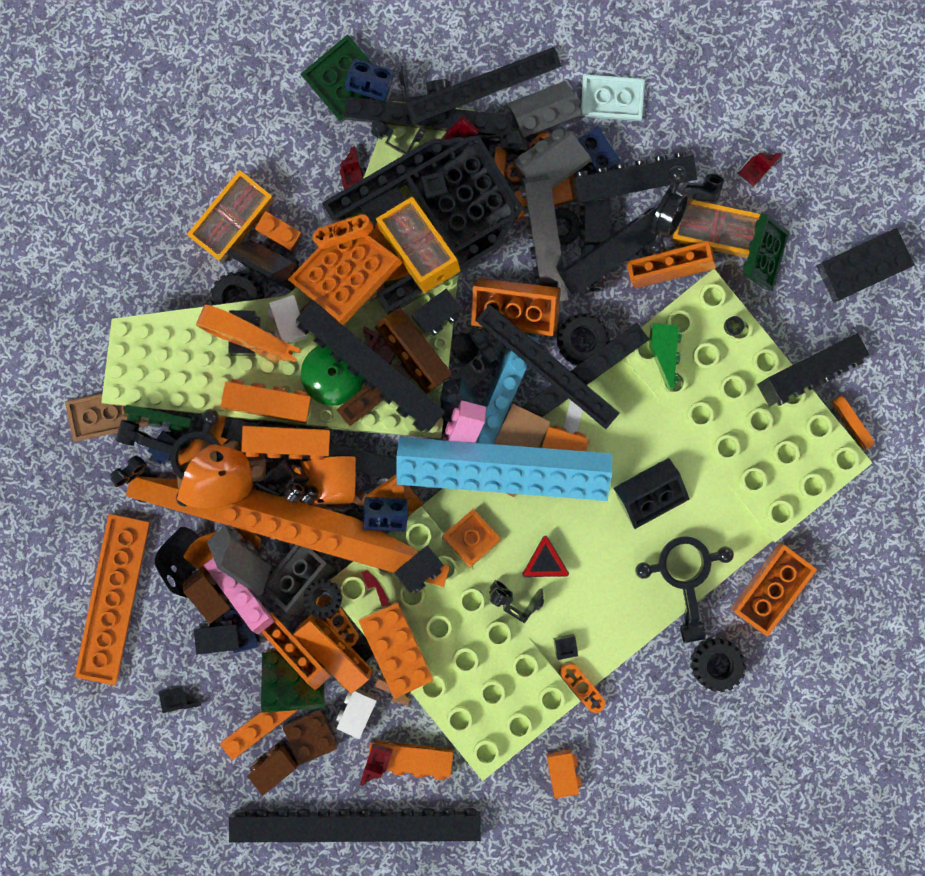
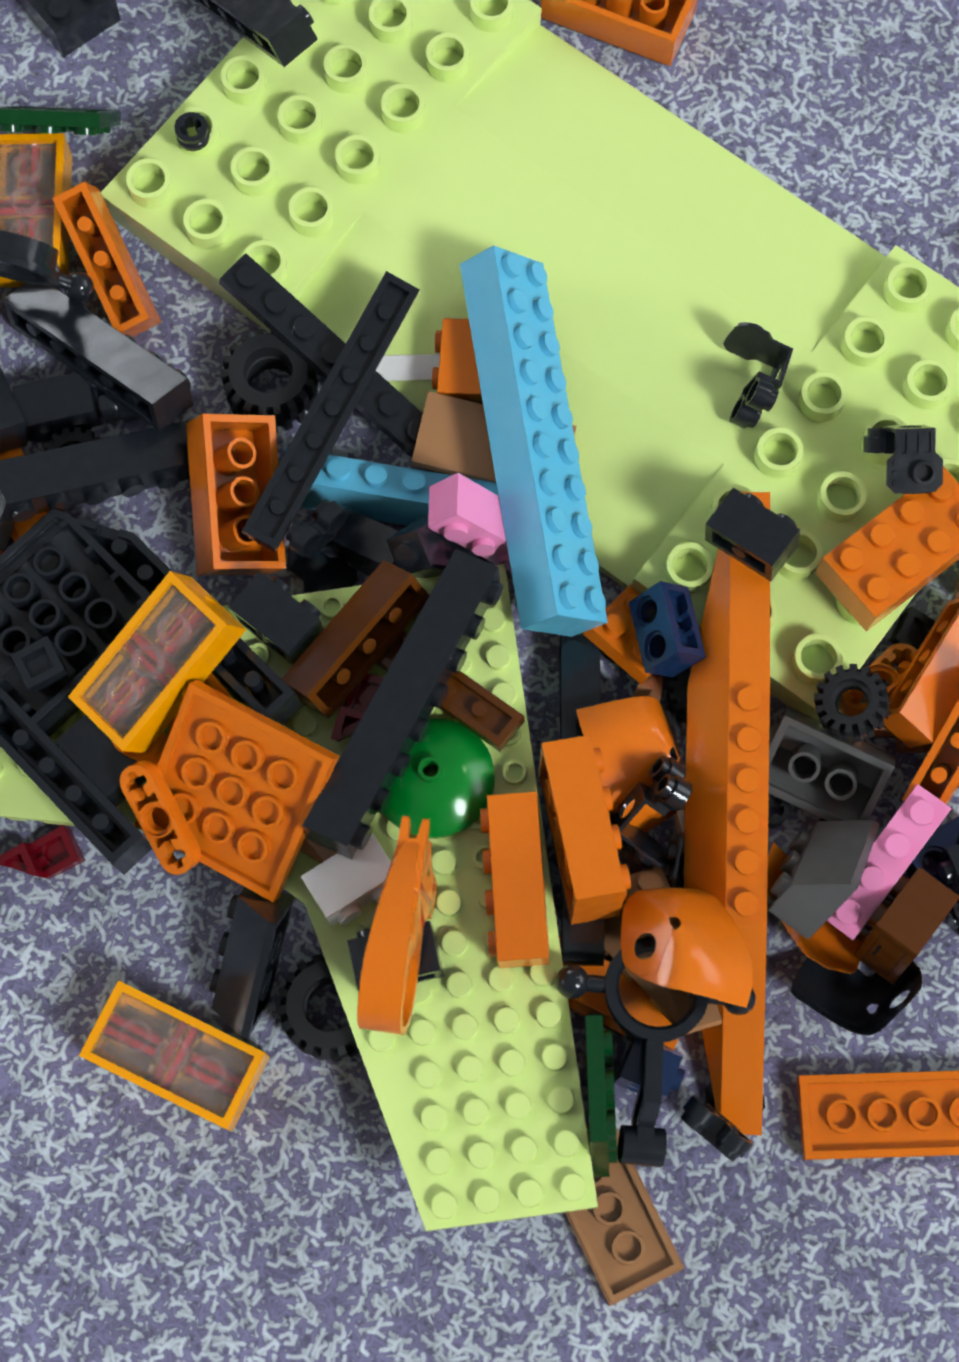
camera: 105 degrees left, 15 degrees down
(279, 232) = (186, 958): orange brick -> none
(372, 581) = (798, 614): dark red slope -> none
(434, 664) = (915, 464): none -> black piece
(471, 538) = (668, 476): orange plate -> none
(545, 562) = (676, 343): piece -> none
(565, 647) = (811, 286): black plate -> none
(581, 695) = (872, 240): orange beam -> none
(652, 493) = (509, 201): black slope -> none
(664, 349) = (262, 223): green slope -> none
(693, 629) = (702, 109): black piece -> none
(732, 674) = (771, 33): black tyre -> none

